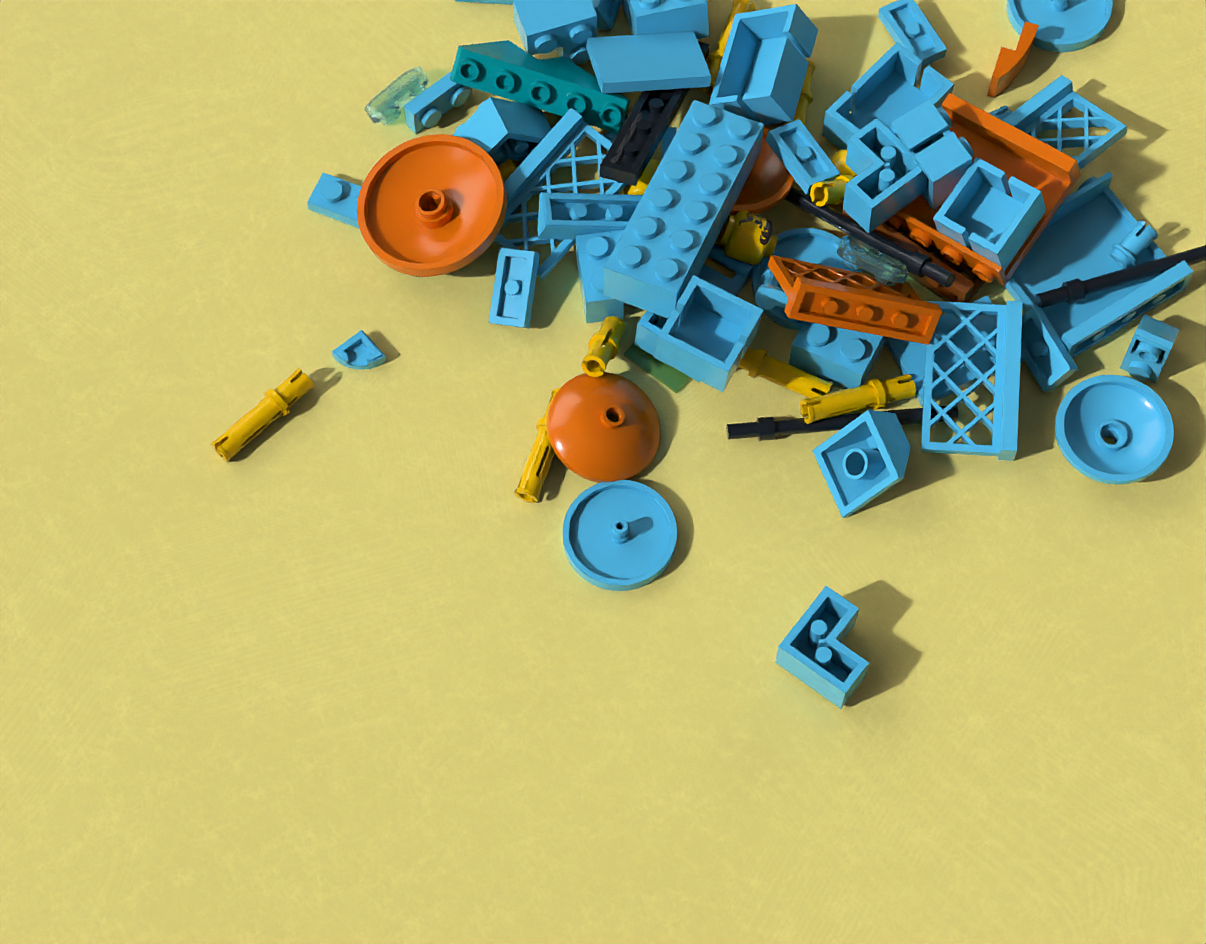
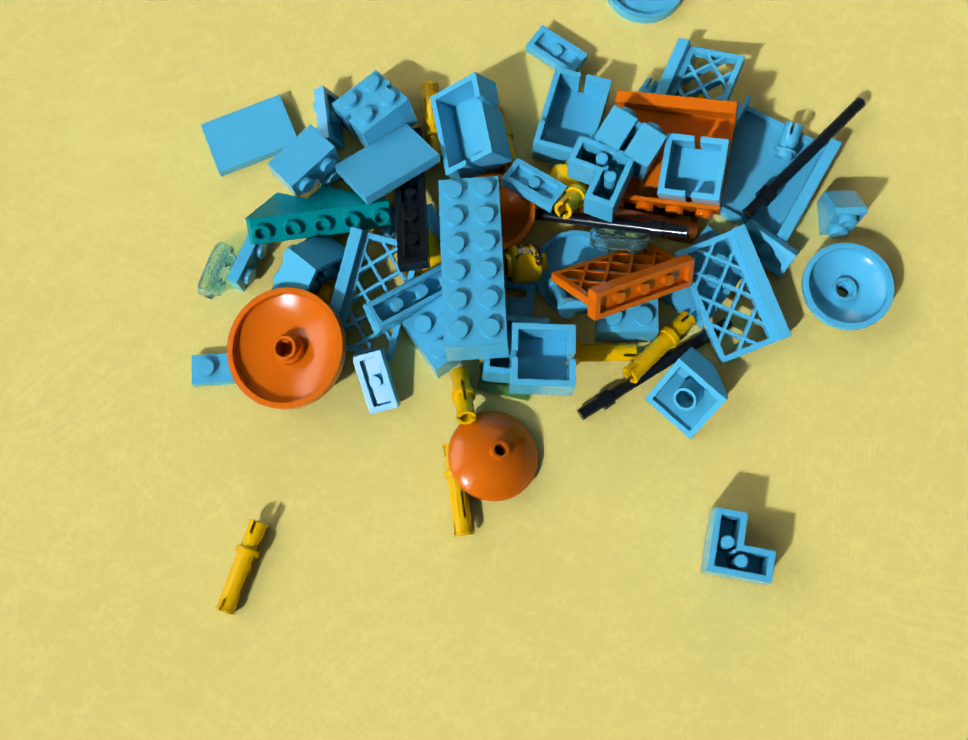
camera: 20 degrees left, 10 degrees up
(359, 353) = (287, 481): medium azure tile -> none
(619, 535) = (544, 530): medium azure piece -> none
(1012, 62) = (635, 42): orange slope -> none

